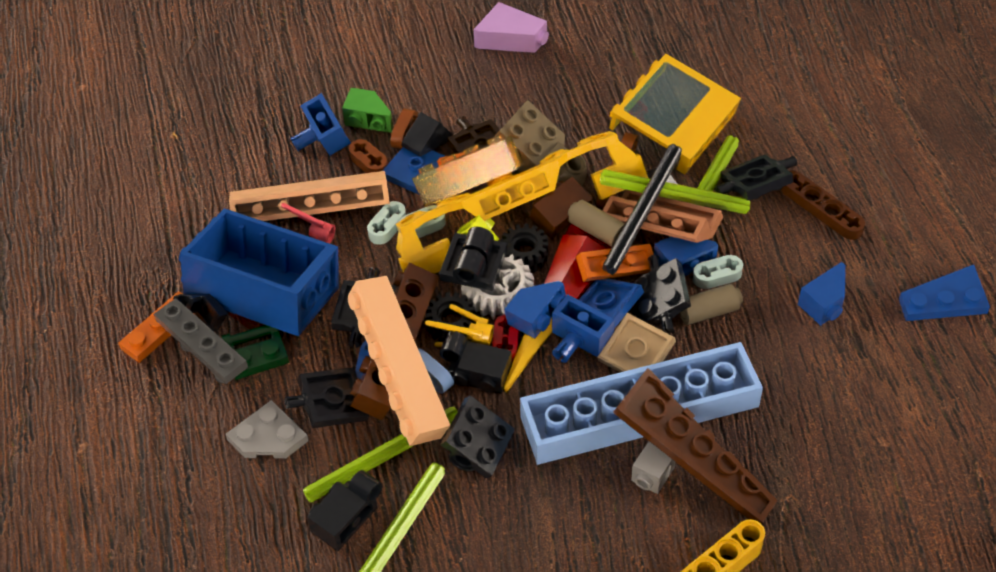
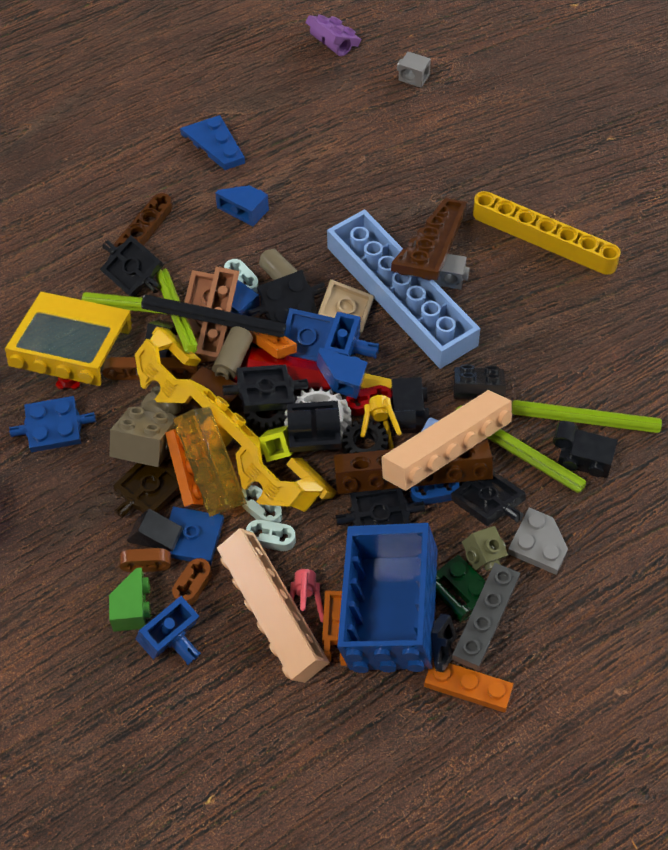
camera: 110 degrees left, 5 degrees up
(275, 372) = (484, 548): none -> olive brick
(539, 236) = (264, 387): none -> black plate
(583, 95) = (52, 424): none -> blue plate

